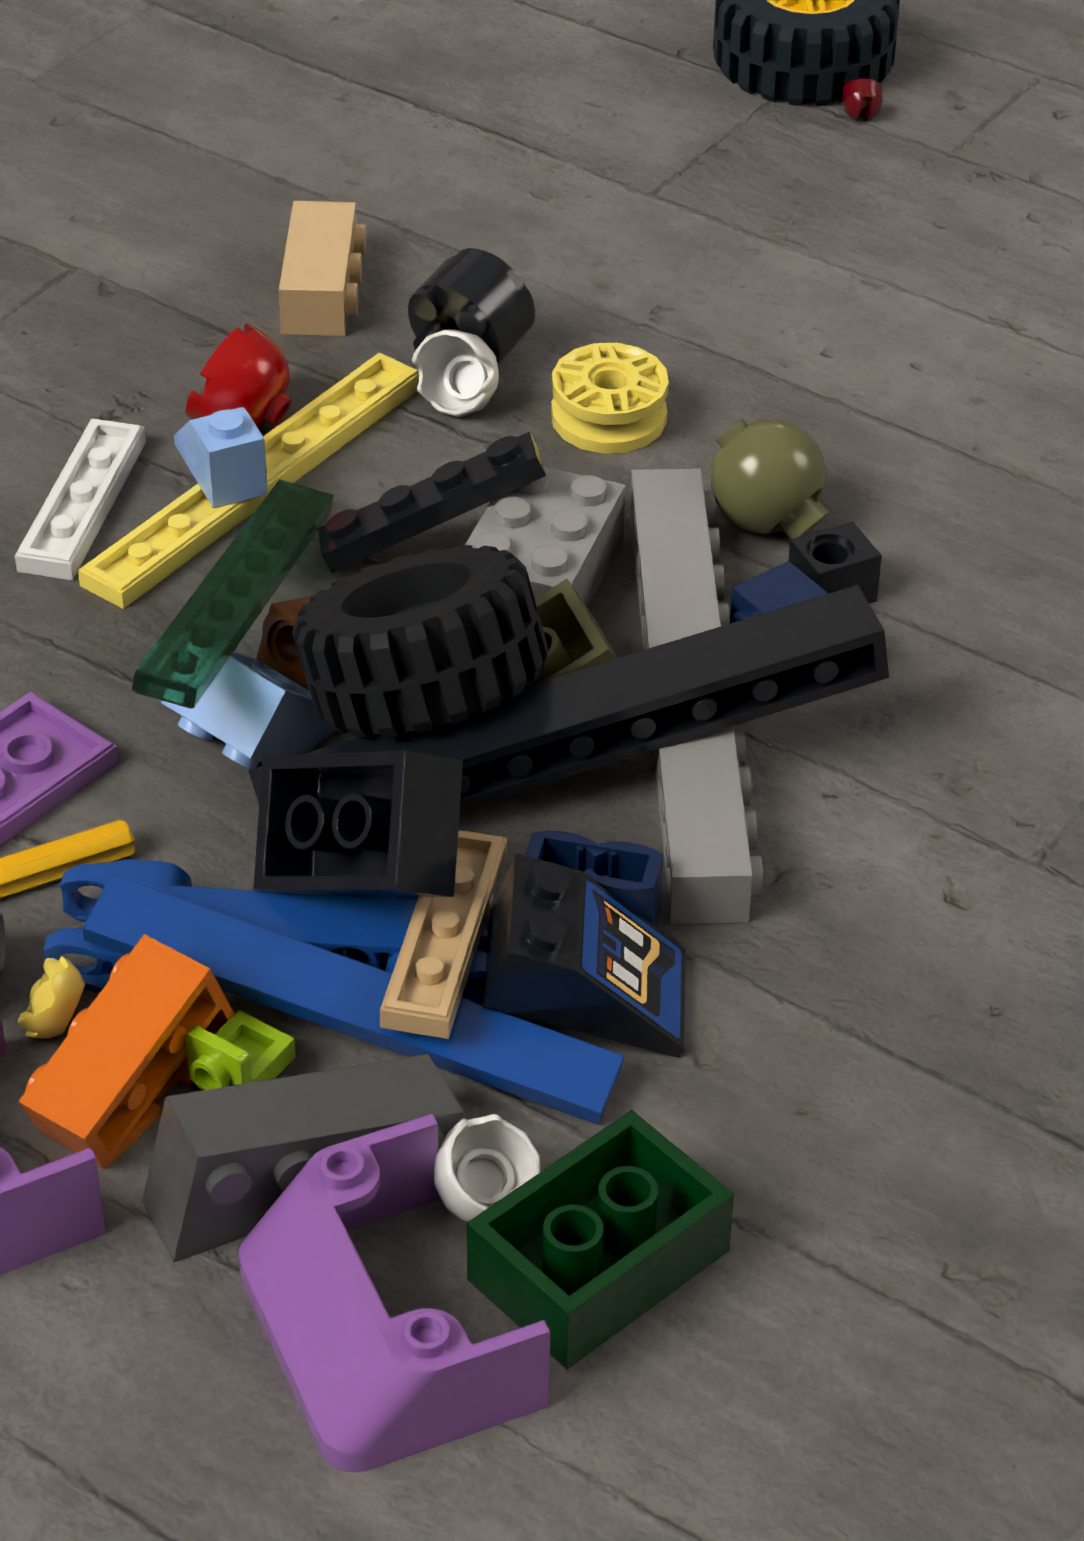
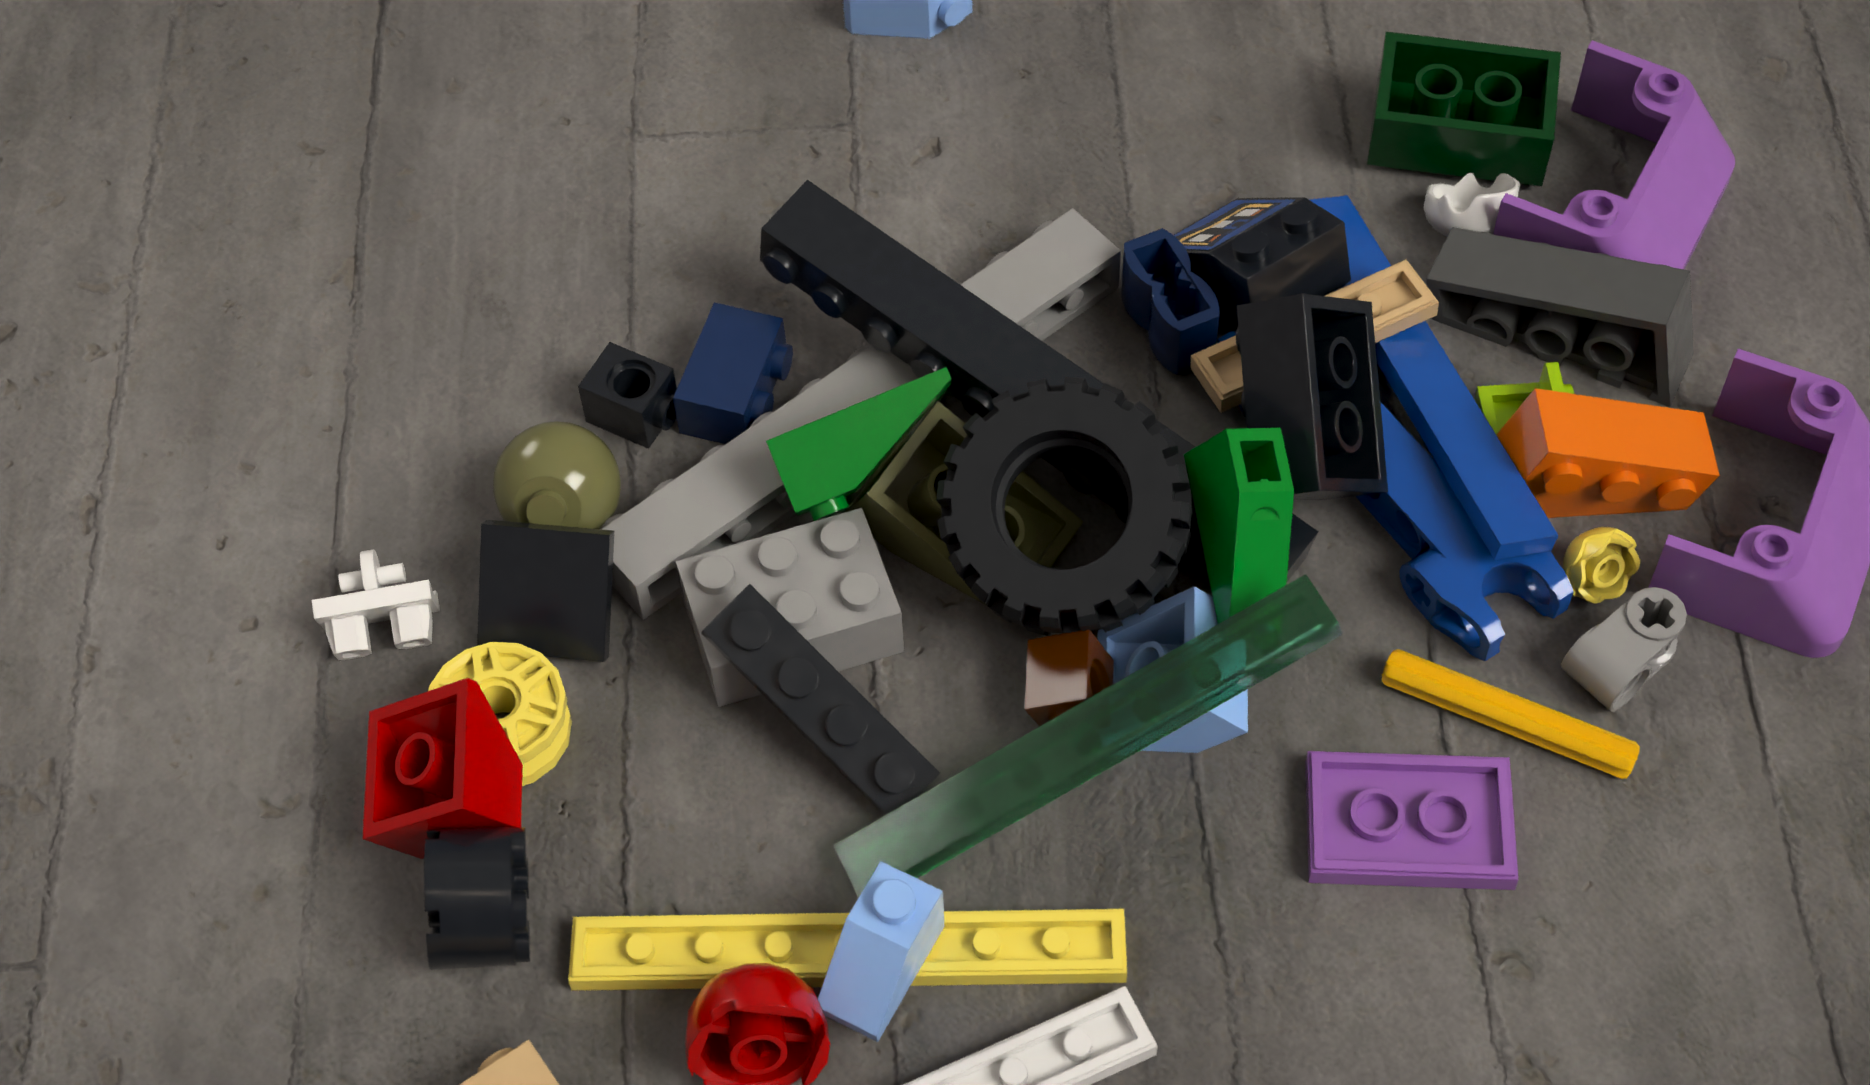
camera: 125 degrees left, 15 degrees up
(298, 718) = (1242, 514): none -> green slope
(456, 372) = (570, 854): white hair -> none
(552, 320) = (438, 766): none -> red slope
(622, 577) = (843, 450): none -> green slope
(684, 439) = (546, 588): none -> black tile
(762, 382) = (348, 615): none -> white hips

